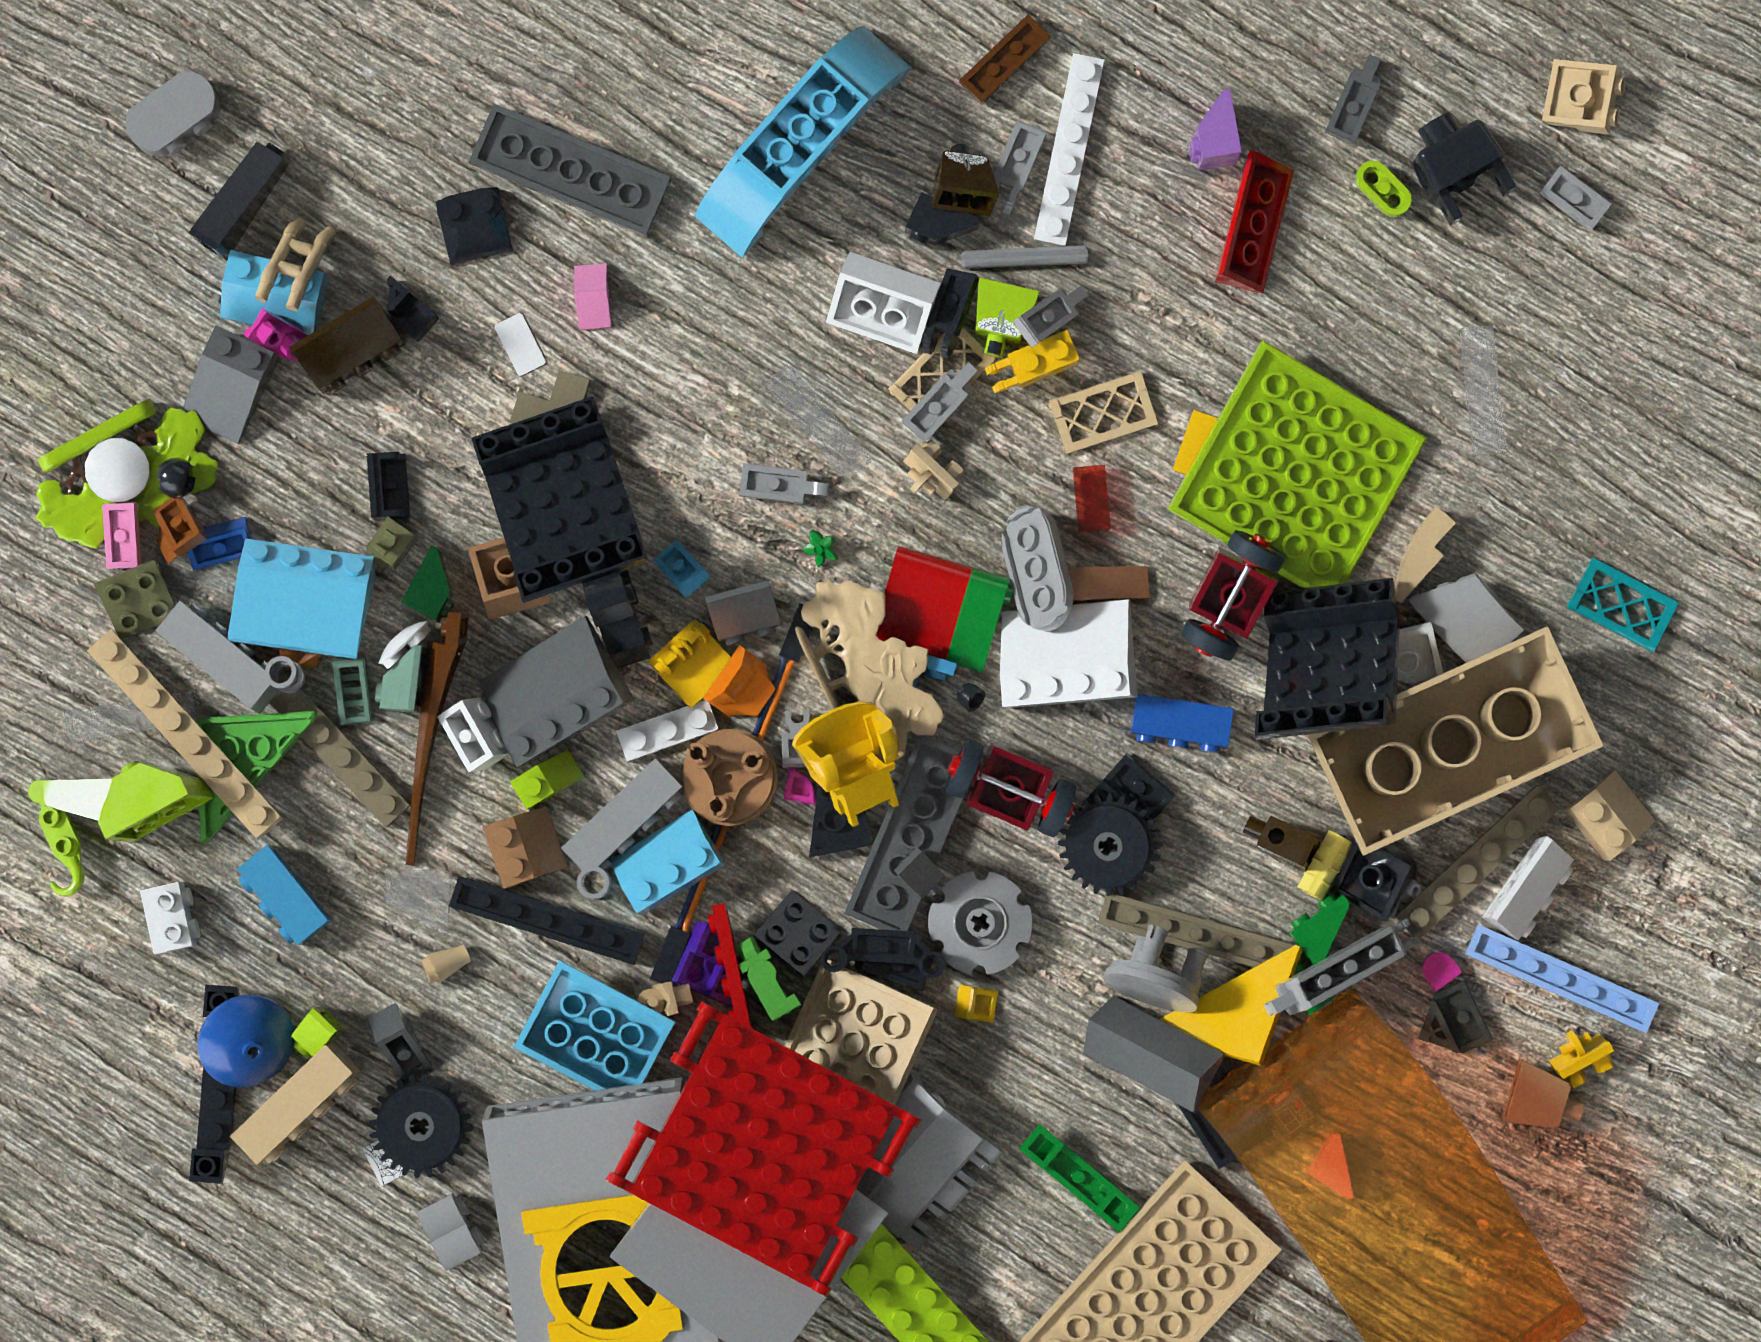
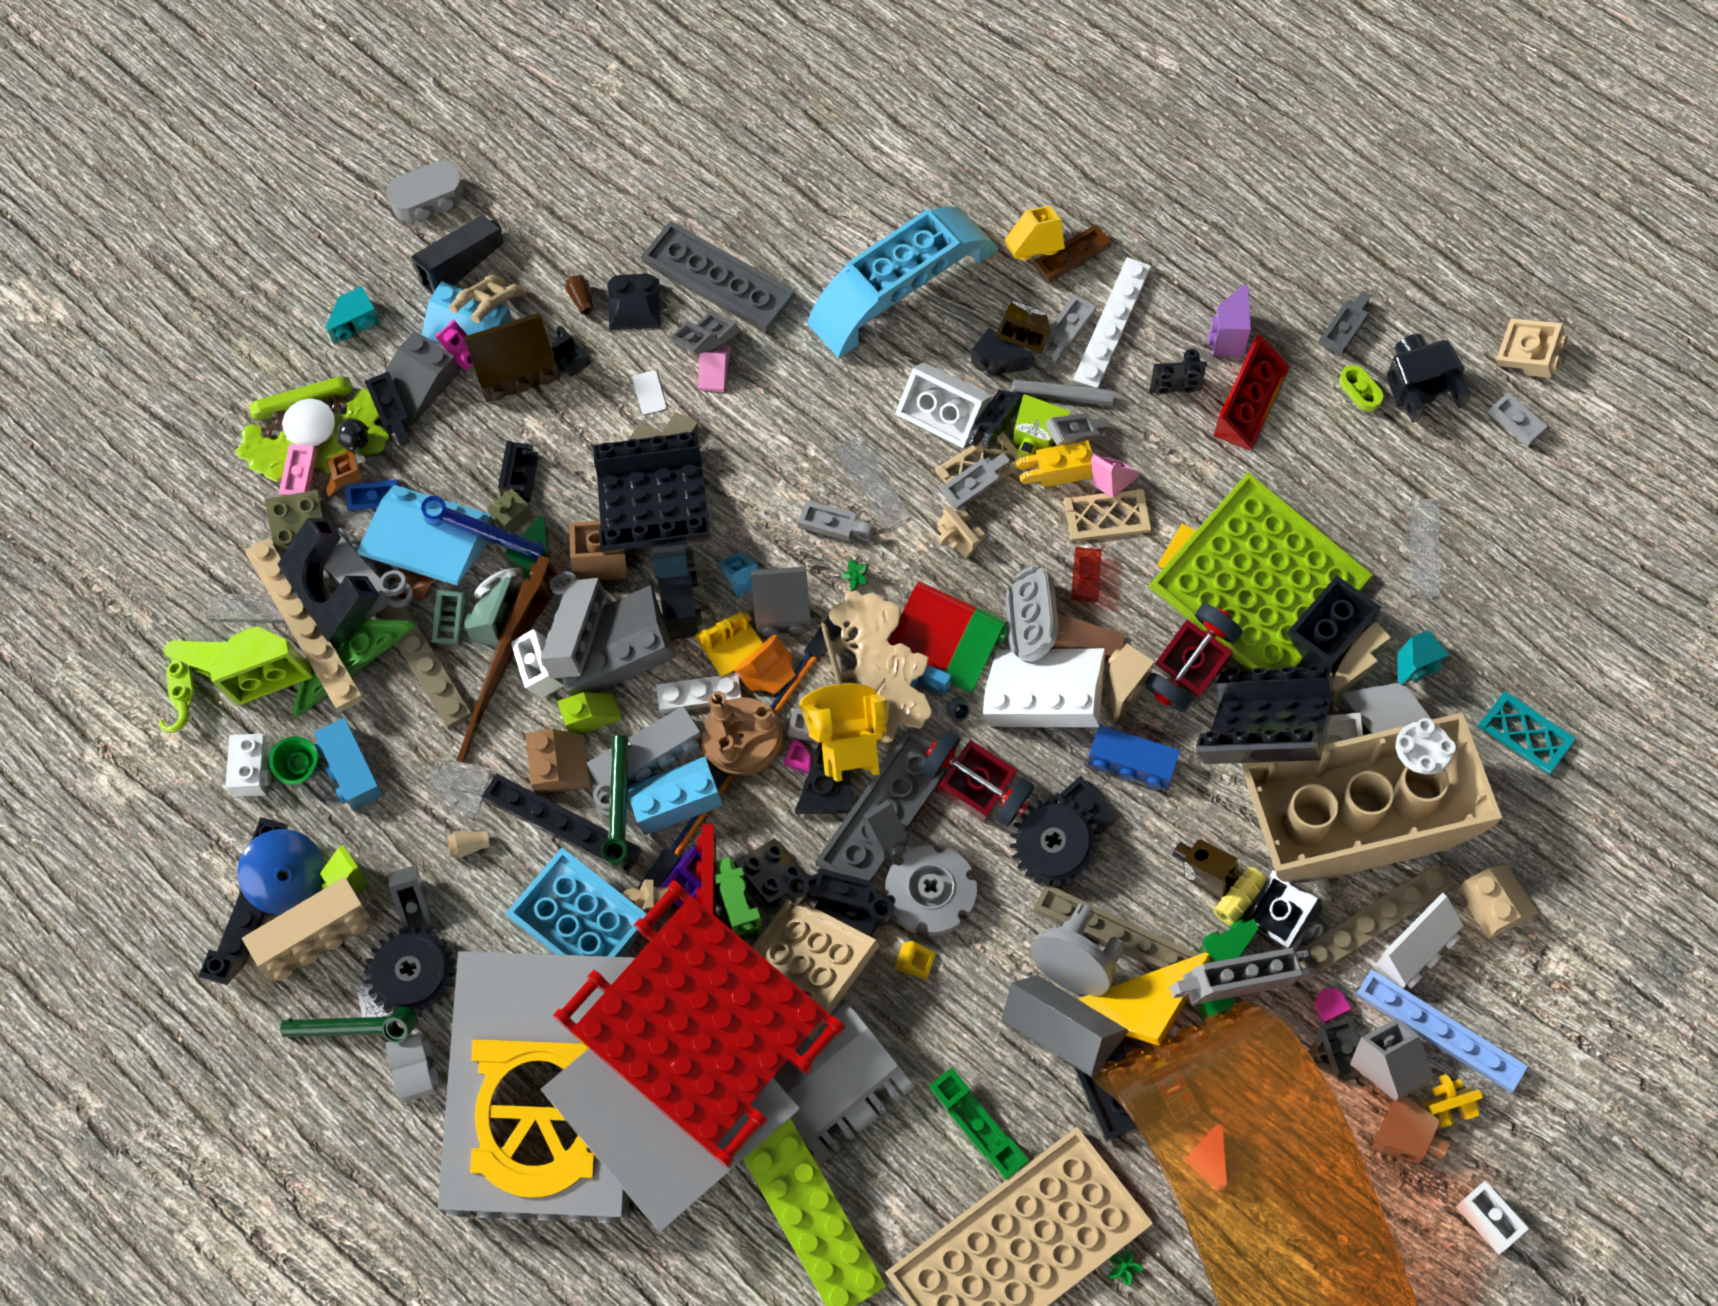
camera: 10 degrees right, 20 degrees down
(126, 308) = (351, 315): none -> teal slope
(170, 672) = (304, 569): none -> black arch
(209, 429) = (389, 406): none -> black hinge
(223, 906) = (294, 760): none -> green helmet
(372, 587) = (480, 528): none -> clear blue piece
(404, 226) = (580, 293): none -> reddish brown cone
(423, 1196) = (353, 1026): none -> dark green piece
(508, 685) = (573, 625): none -> light grey hinge
(573, 261) = (706, 334): none -> flat silver slope
(608, 890) = (618, 804): none -> dark green piece
(955, 48) = (1036, 233): none -> yellow slope
(1104, 362) = (1112, 475): none -> bright pink slope
(1158, 632) = (1126, 679): none -> tan slope
(1174, 216) = (1179, 376): none -> black hinge
(1258, 1298) = (1124, 1267): none -> green plant
(1388, 519) = (1333, 624): none -> black slope
(1489, 540) = (1420, 657): none -> teal slope
(1509, 681) = (1424, 747): none -> white dish
(1515, 1029) = (1393, 1059): none -> light grey slope
(1638, 1179) = (1492, 1217): none -> white brick

